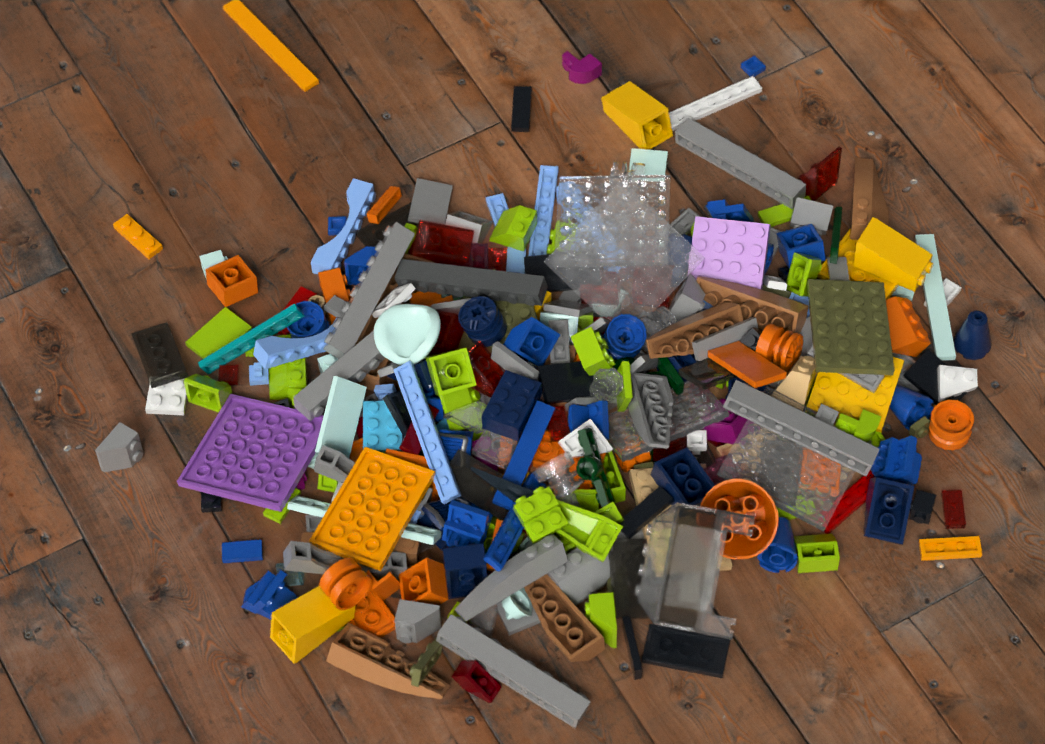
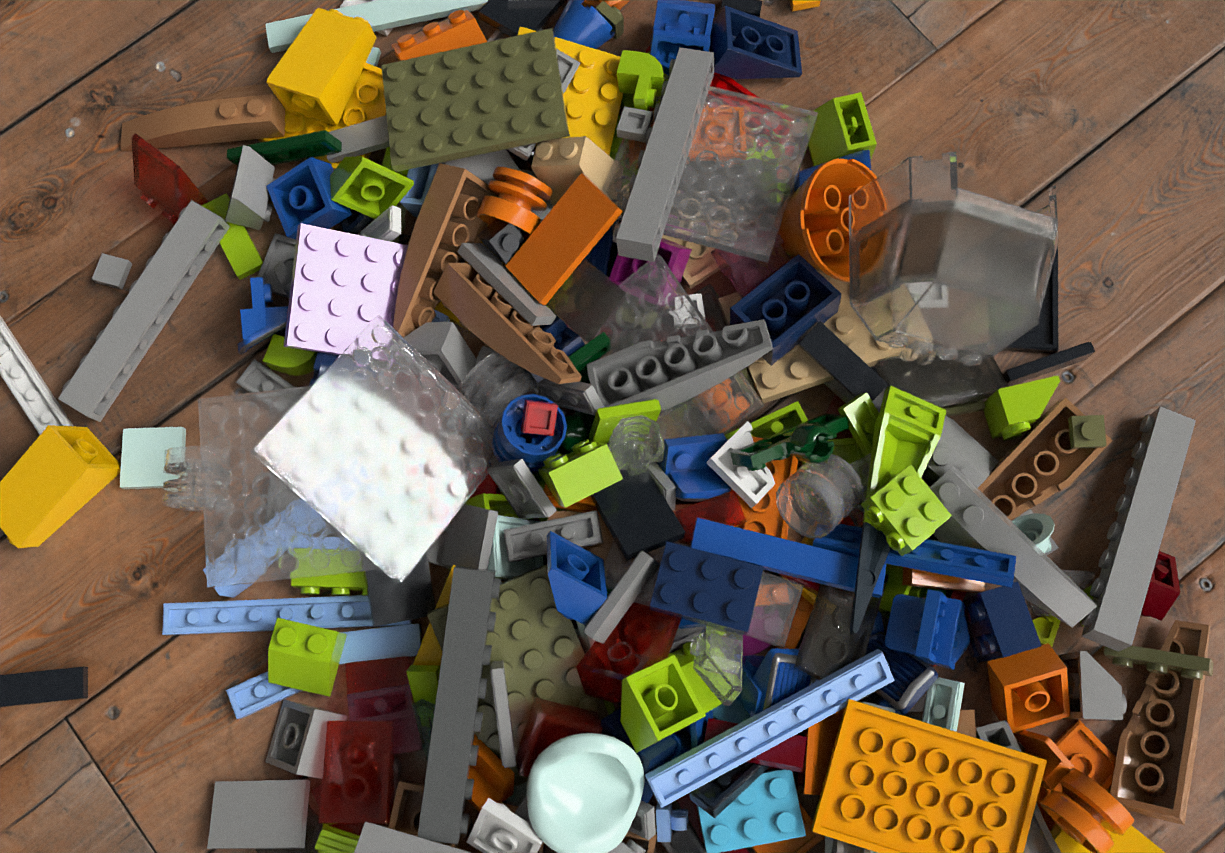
camera: 95 degrees left, 20 degrees up
(482, 321) = (529, 652): dark blue wheel -> none
(577, 642) = (1087, 431): none -> olive plate
(630, 337) = (539, 417): none -> red tile
(771, 150) = (112, 271): none -> light grey tile

